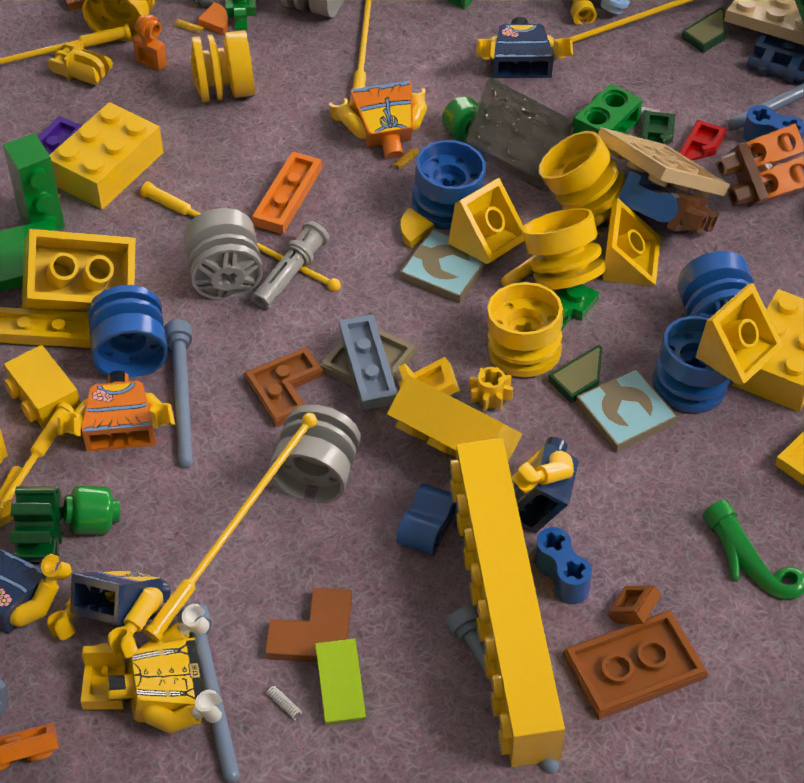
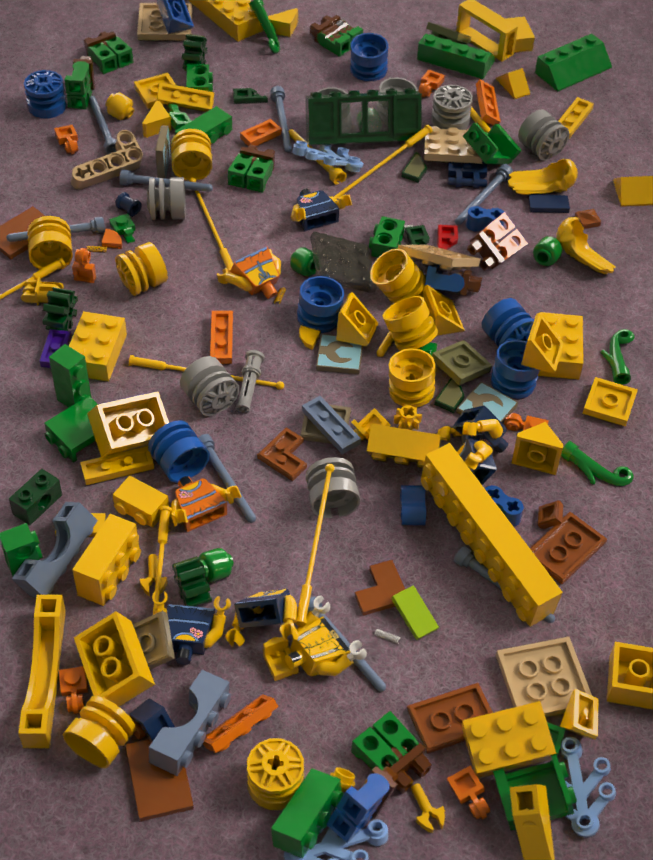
camera: 25 degrees left, 0 degrees up
(82, 90) = (60, 309): none -> dark green gear
(586, 435) = (478, 423): none -> torso
(619, 330) = (461, 362): none -> olive plate
(659, 494) = (538, 449): none -> yellow slope
(681, 463) = (514, 422): none -> orange plate

